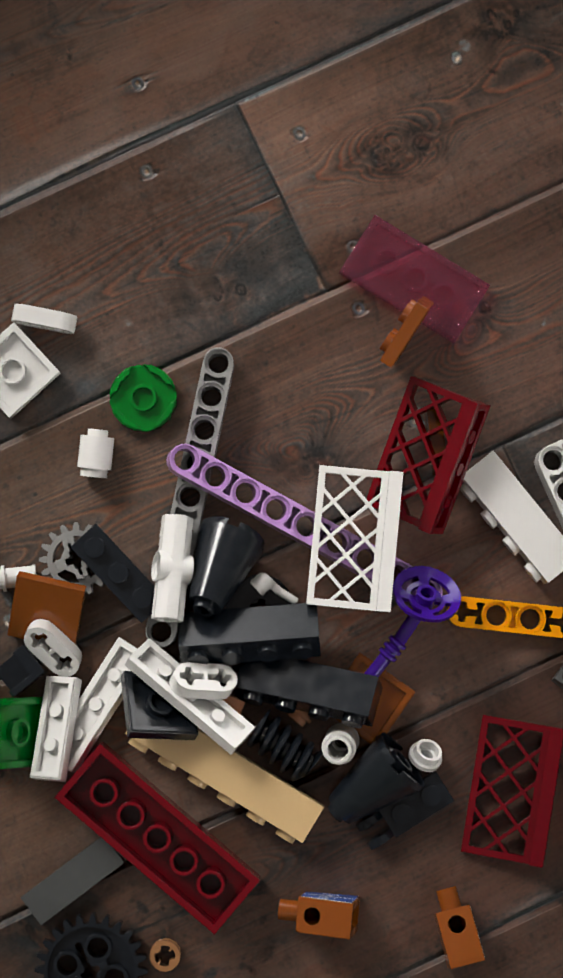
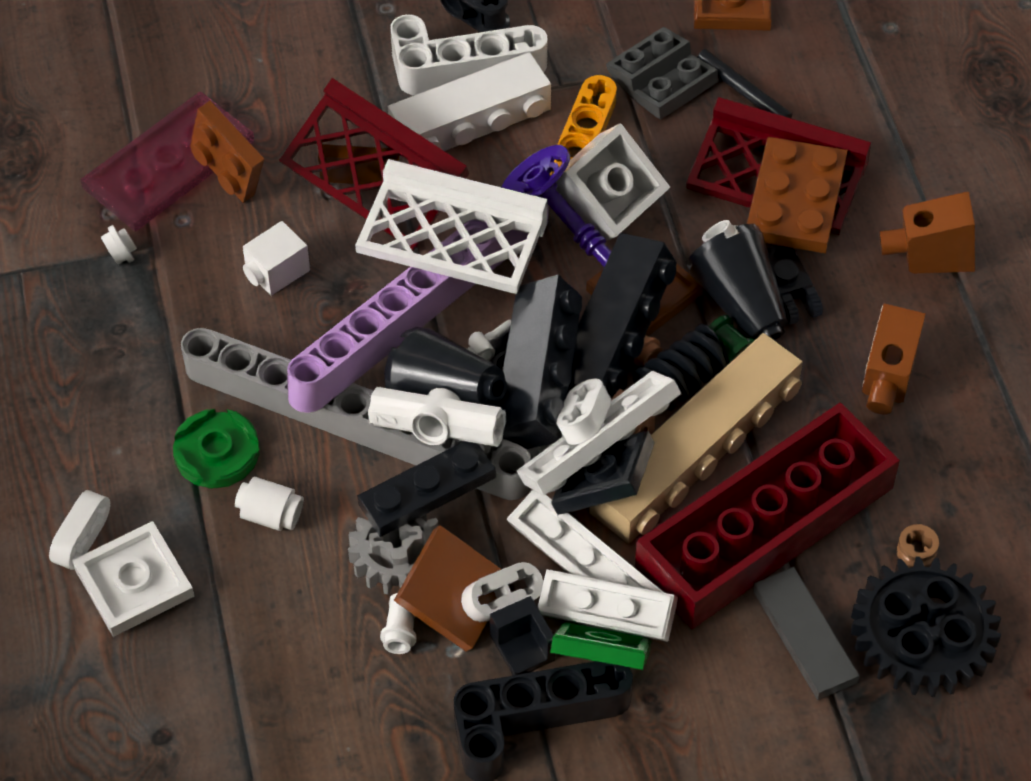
camera: 75 degrees left, 30 degrees down
(313, 266) = (119, 244): none -> white plate
(321, 779) = (731, 339): none -> dark green bush
(324, 396) = (275, 258): none -> white brick
(336, 752) = (690, 306): white brick -> none
(447, 655) = (611, 182): none -> white brick
(477, 811) = (797, 193): none -> dark orange plate

